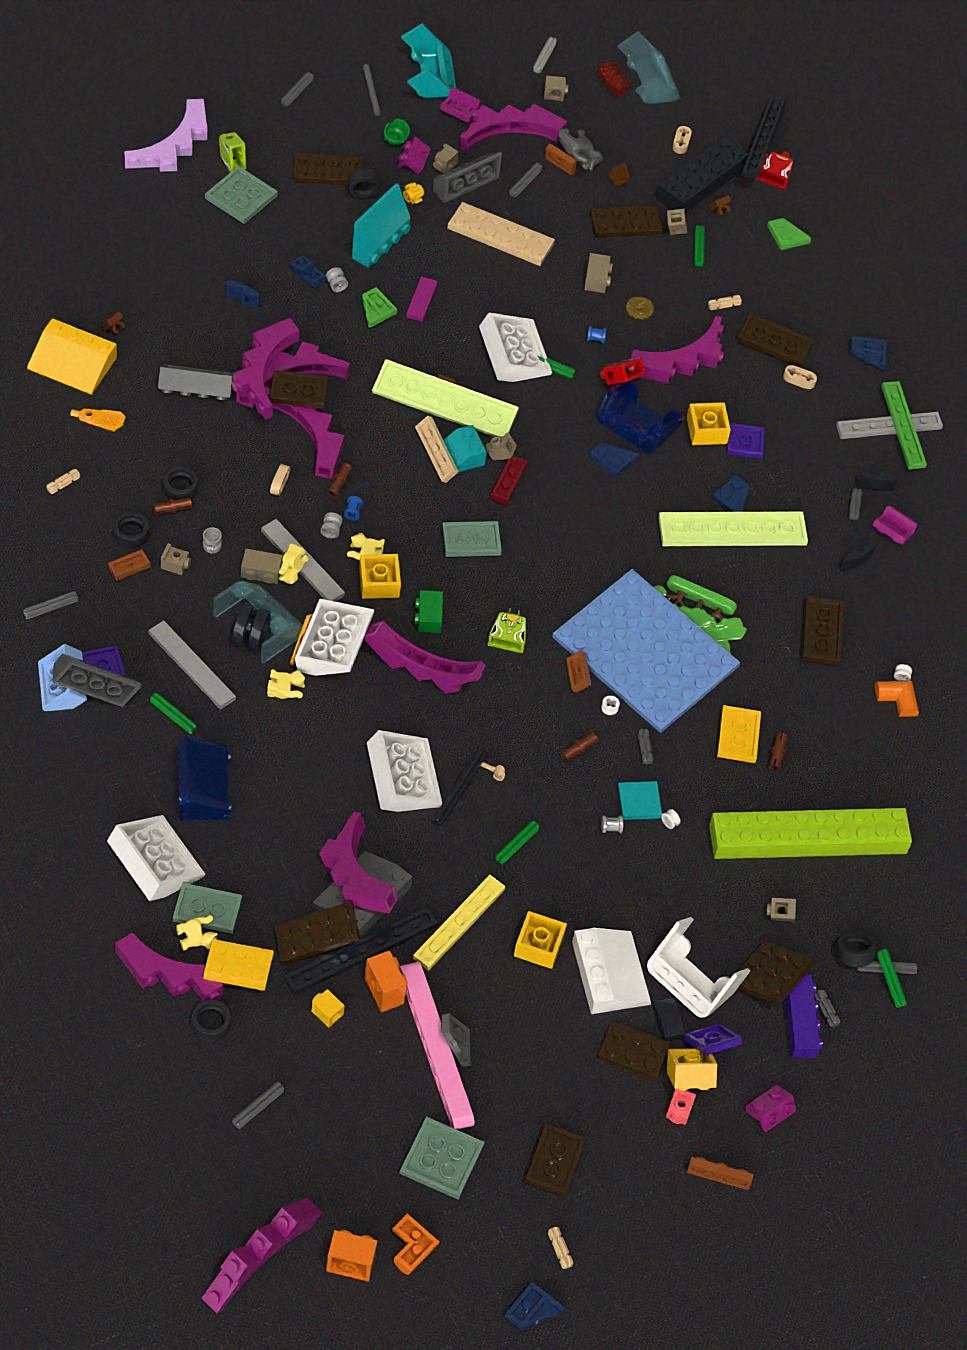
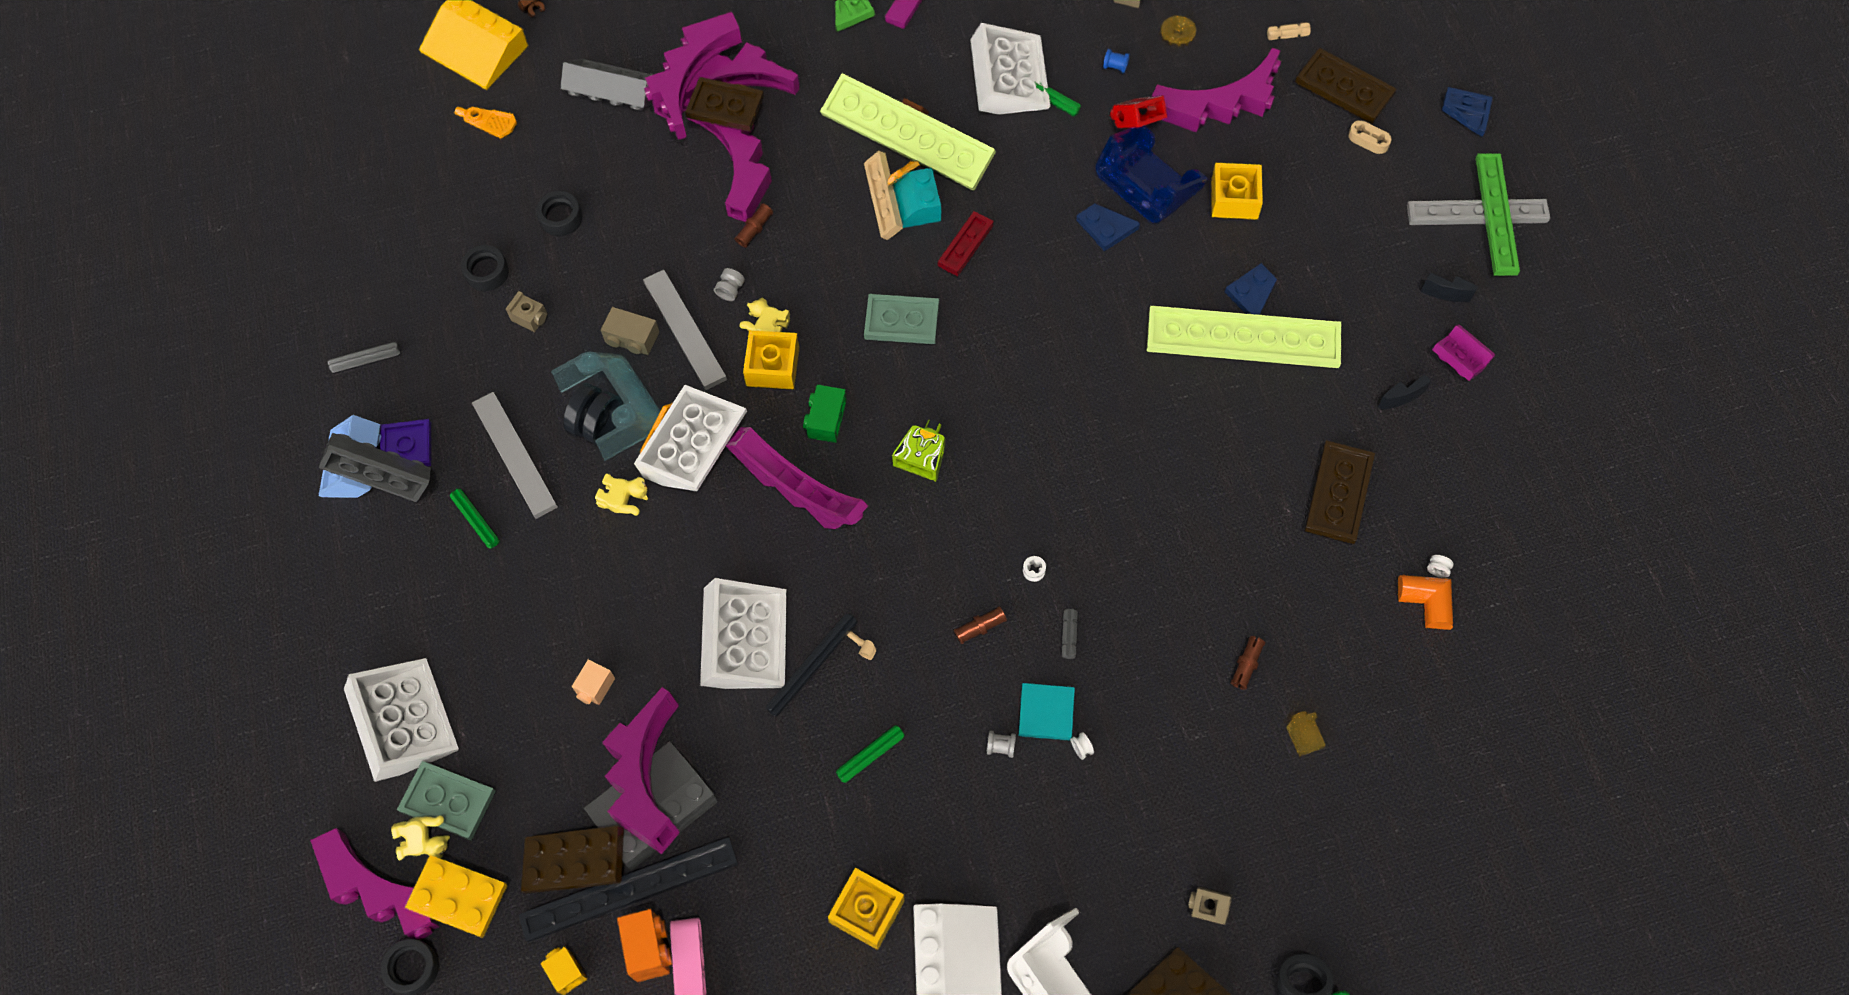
camera: 20 degrees right, 10 degrees up
(63, 481) = (421, 197): tan axle -> none
(129, 565) = (470, 313): dark orange plate -> none
(172, 506) = (542, 241): copper pin -> none
(203, 779) = (480, 616): clear blue windscreen -> none
(212, 540) = (577, 290): light grey wheel -> none
(280, 479) = (680, 218): tan beam -> none
(292, 564) = (667, 329): light yellow animal -> none
(298, 816) = (593, 683): none -> light nougat brick
(353, 508) = (762, 264): blue bush -> none
(450, 429) = (902, 172): none -> light orange piece
(459, 922) = (766, 864): light yellow plate -> none
(501, 447) = (958, 200): dark tan brick -> none
(578, 671) = (1001, 517): dark orange plate -> none
(646, 650) = (1097, 497): medium blue plate -> none
(721, 632) = (1168, 465): bright green plant -> none
(739, 734) = (1199, 631): yellow plate -> none
(746, 440) = (1283, 216): dark purple tile -> none
(810, 833) = (1272, 792): lime brick -> none
(827, 794) = (1305, 733): none -> clear yellow bracket
(855, 504) = (1414, 317): dark grey axle -> none

